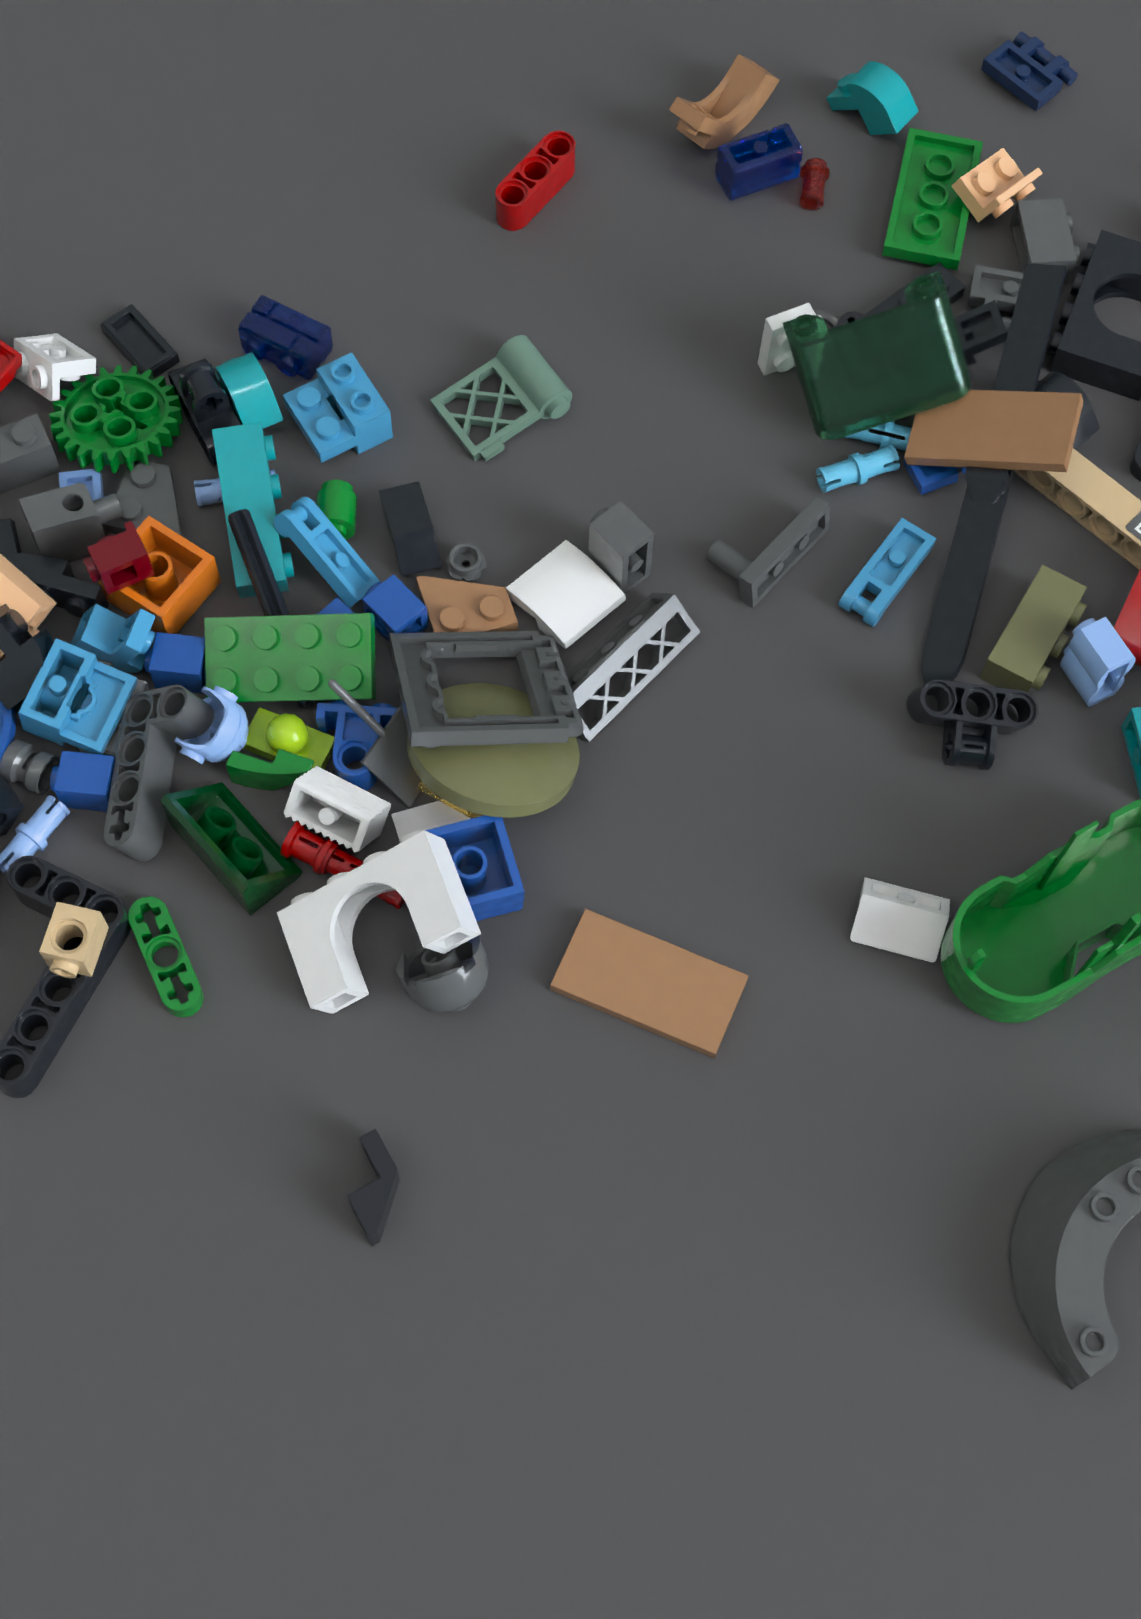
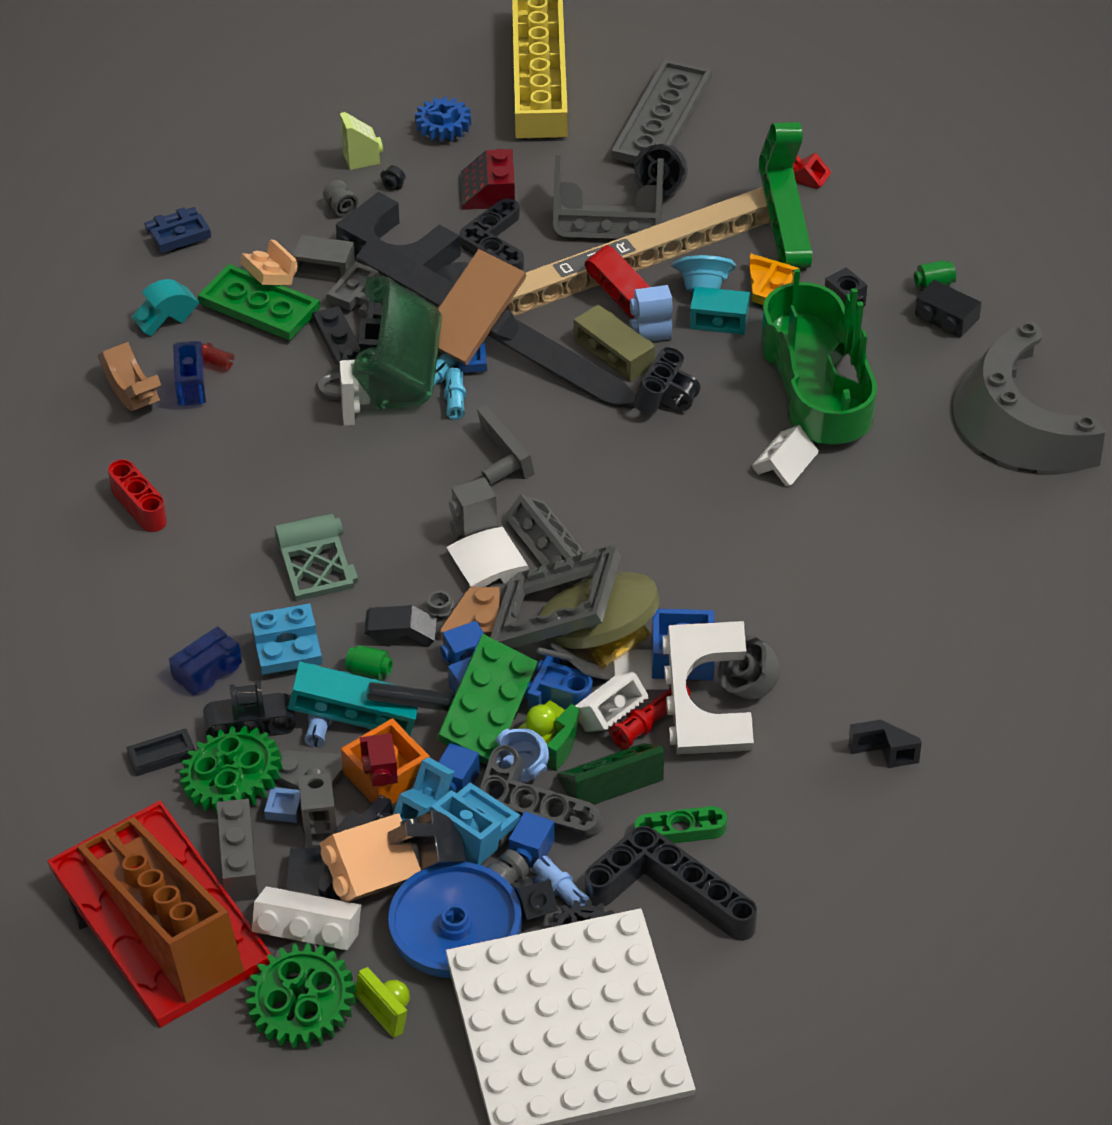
camera: 70 degrees left, 20 degrees down
(49, 360) = (173, 789): white bracket -> none
(71, 922) = (667, 845): tan brick -> none
(248, 391) = (245, 674): teal brick -> none
(326, 550) = (405, 666): dark azure plate -> none
(649, 983) = (786, 584): medium nougat tile -> none
(887, 571) = (540, 398): dark azure plate -> none

